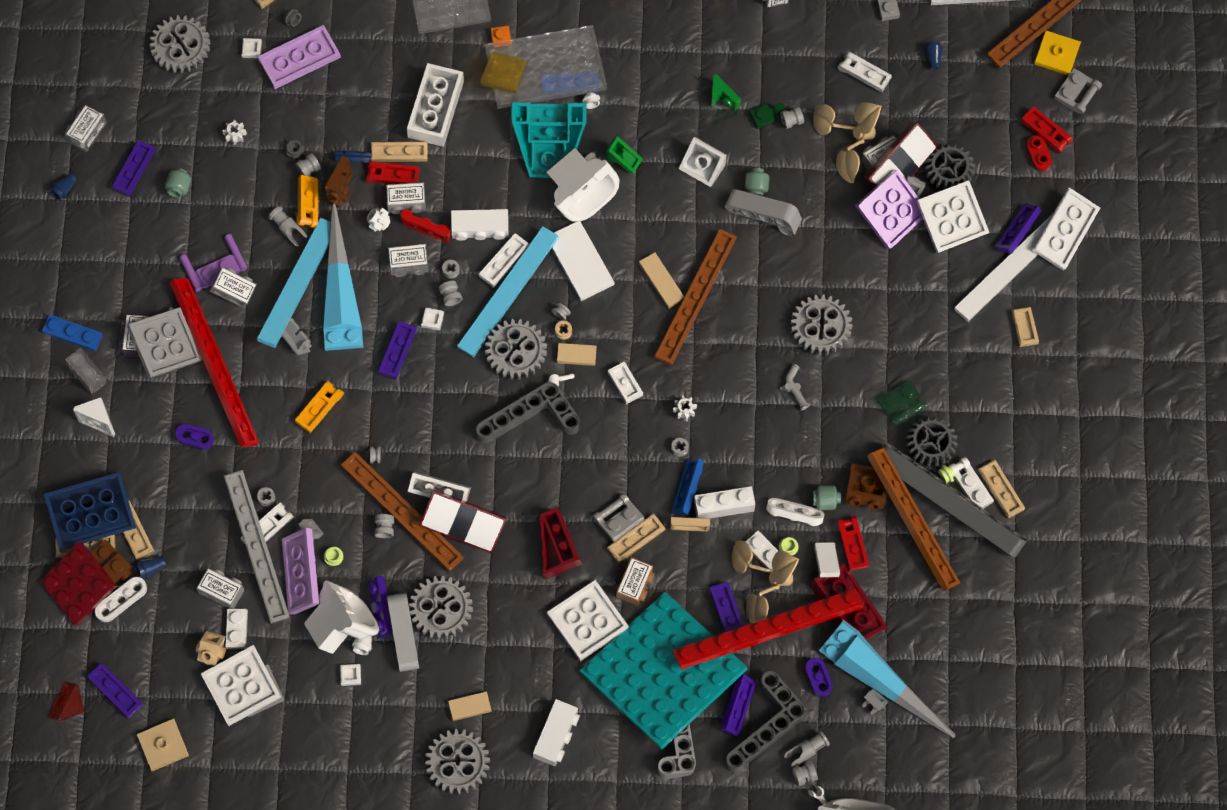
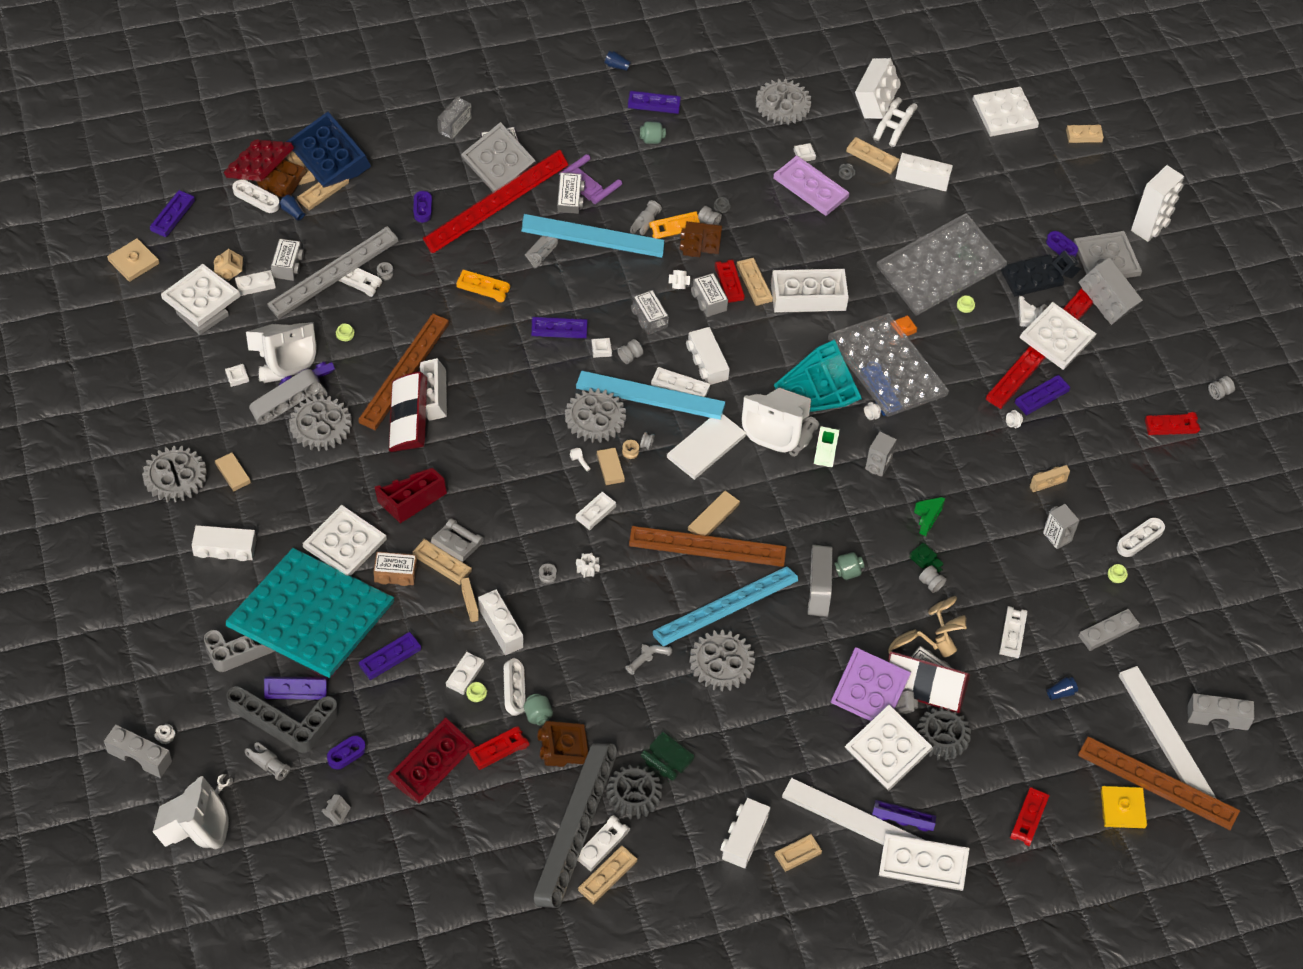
camera: 70 degrees right, 15 degrees down
(68, 703) = (151, 188): clear red slope -> none
(72, 333) = (487, 103): blue plate -> none
(85, 128) = (676, 61): brick -> none
(95, 416) = (414, 132): white slope -> none
(234, 132) = (717, 159): white gear -> none
(300, 571) = (327, 306): lavender plate -> none
(309, 523) = (363, 308): light grey tile -> none
(341, 316) = (577, 278): medium azure plate -> none
(354, 156) = (733, 247): dark blue axle -> none
(375, 454) = (451, 336): light grey bush -> none
(384, 526) = (385, 360): light grey wheel -> none
(425, 226) = (689, 314): red plate -> none
(451, 263) = (655, 352): light grey bush -> none
(504, 72) = (863, 328): clear yellow plate -> none
(529, 411) = (554, 452): dark grey beam -> none
(649, 110) = (880, 454): none -> light grey brick
(687, 487) = (508, 589): blue plate -> none
(703, 162) = (849, 516): white slope -> none
(764, 303) = (725, 606): none -> medium azure tile
(768, 629) = (377, 685): red plate -> none
(781, 575) = (438, 687): tan plant -> none
(804, 773) = (240, 764): light grey wheel -> none
(827, 560) = (472, 726): white tile -> none
(858, 658) = (373, 780): medium azure plate -> none
(913, 519) = (539, 792): dark orange plate -> none
(946, 473) = (603, 814): yellowish green plate -> none
(997, 362) = (745, 832): none -> white brick
(1038, 152) = (1001, 816): red plate -> none
(1072, 88) = (1091, 832): light grey plate -> none

